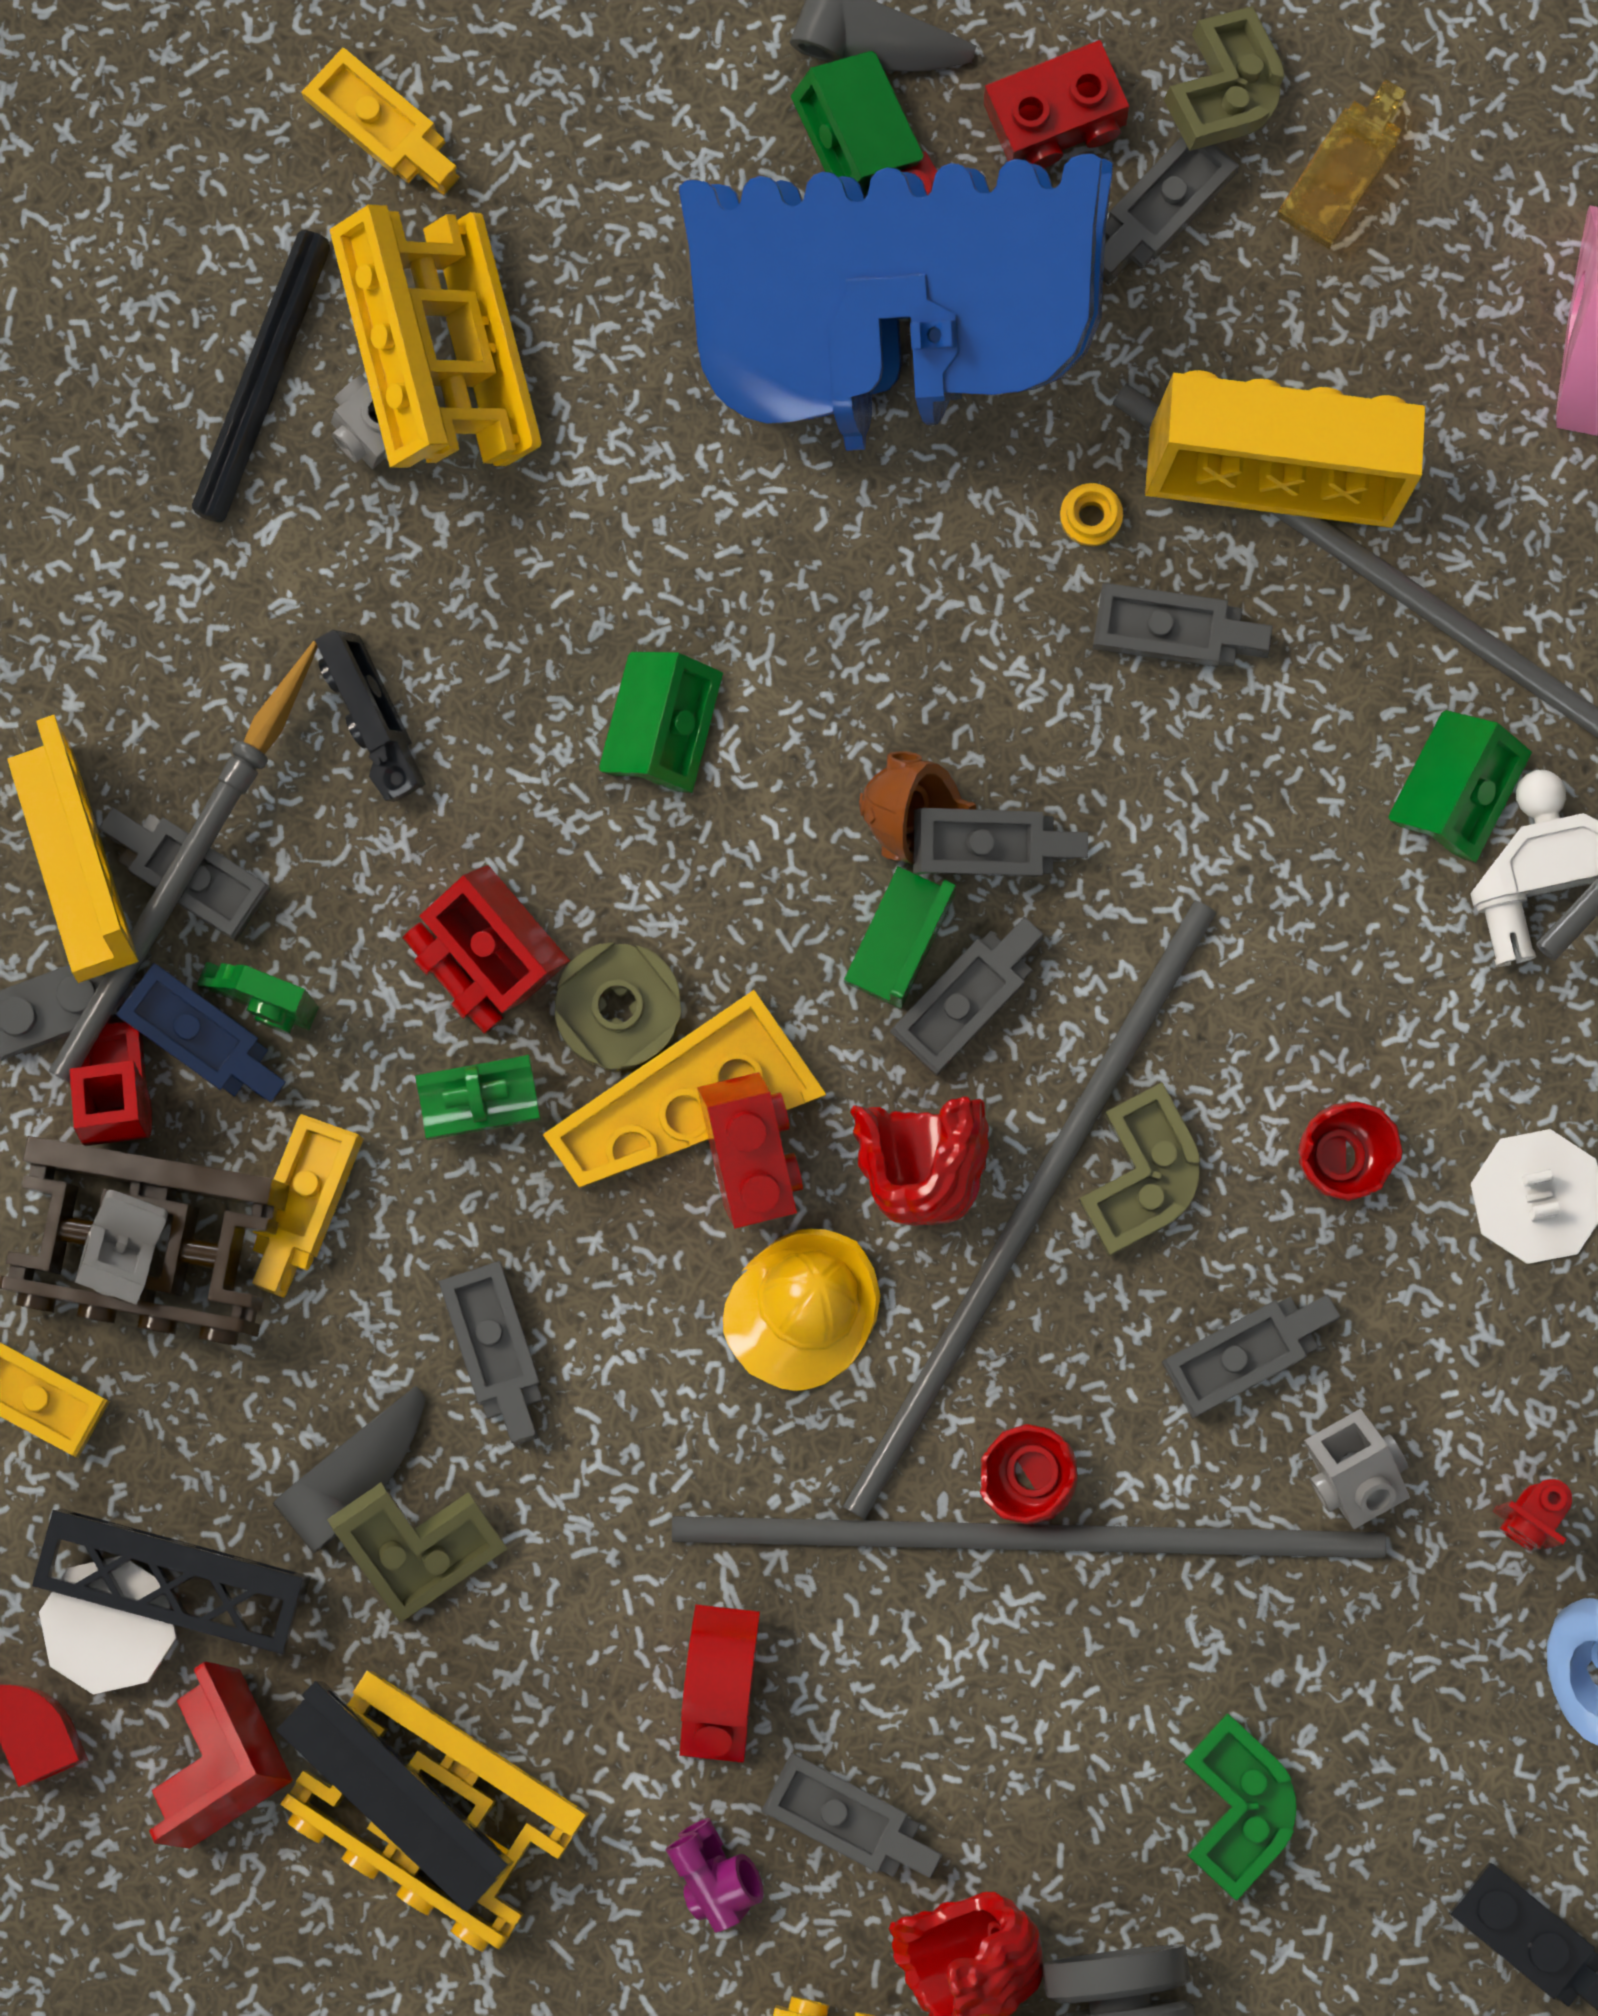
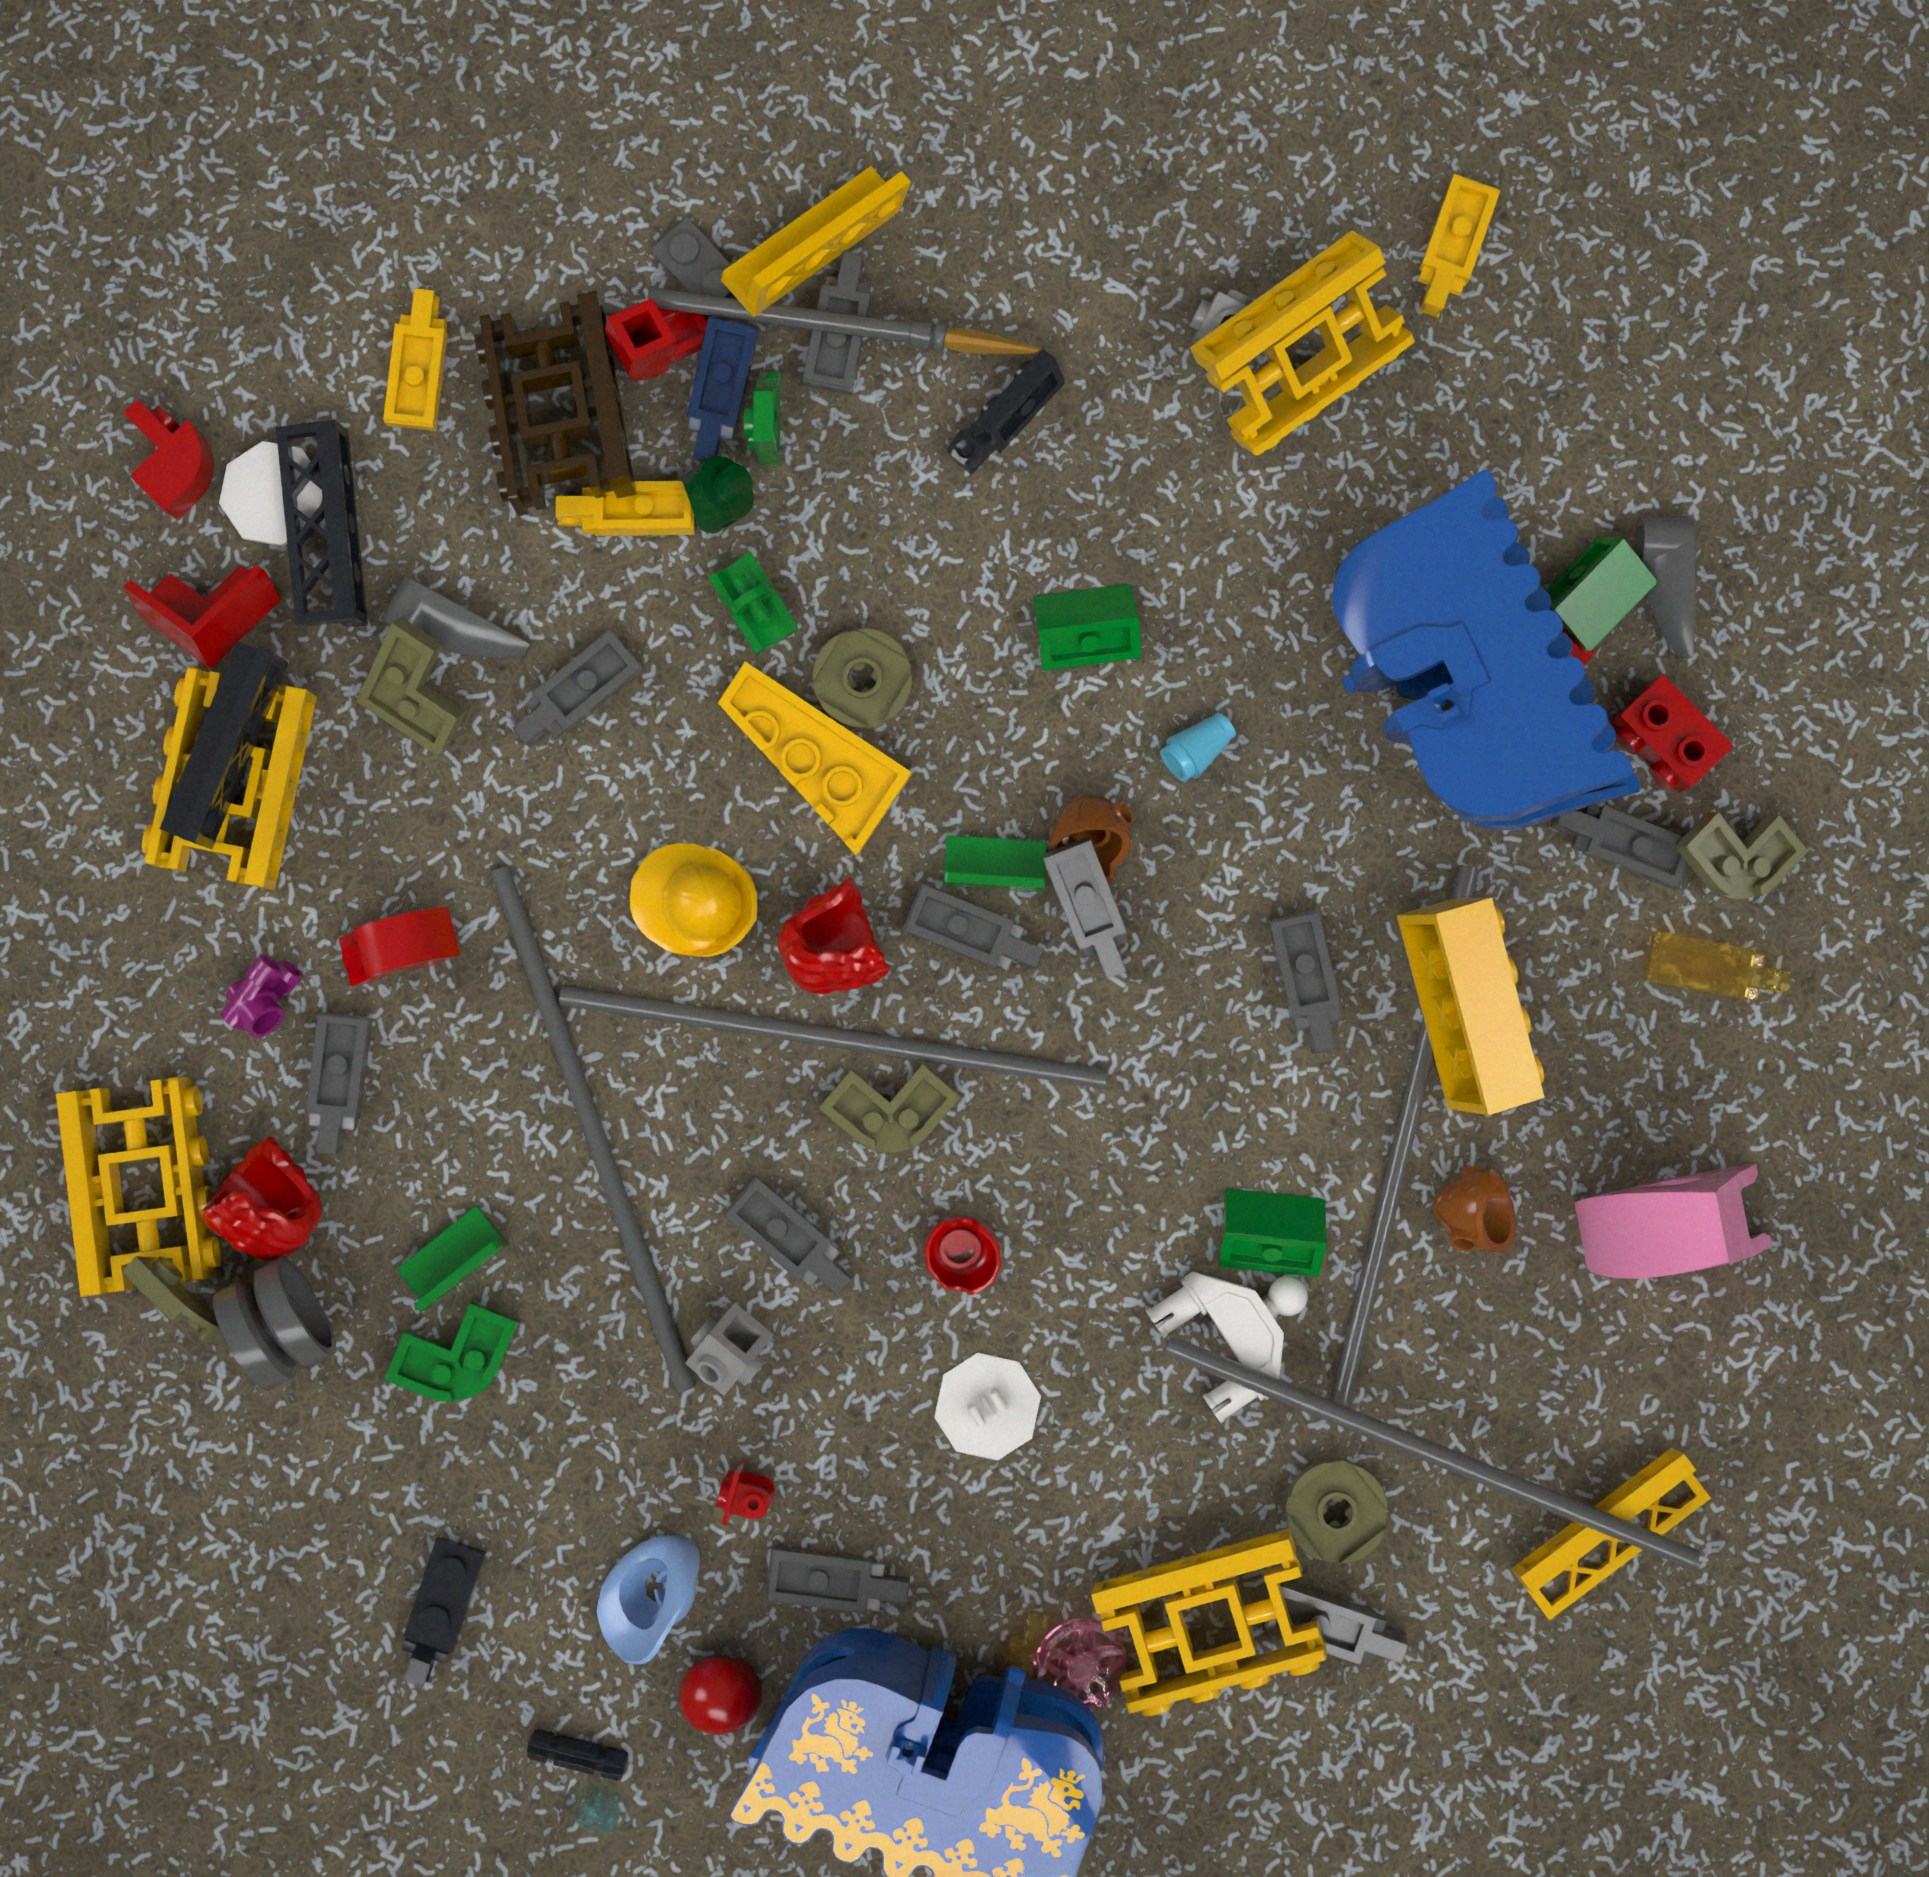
camera: 60 degrees right, 5 degrees up
(121, 1246) = (535, 387): light grey bracket -> none
(261, 376) = (1227, 233): black axle -> none
(327, 1087) = (718, 493): none -> dark green piece
(491, 940) = (867, 565): red brick -> none
(748, 1150) = (789, 812): red brick -> none
(855, 649) = (1197, 746): none -> medium azure cone
(1047, 1464) = (649, 1122): red hair -> none
(1094, 495) = (1384, 879): yellow plate -> none
(1120, 1764) = (452, 1257): none -> green panel
(1524, 540) = (1477, 1211): none -> dark orange helmet

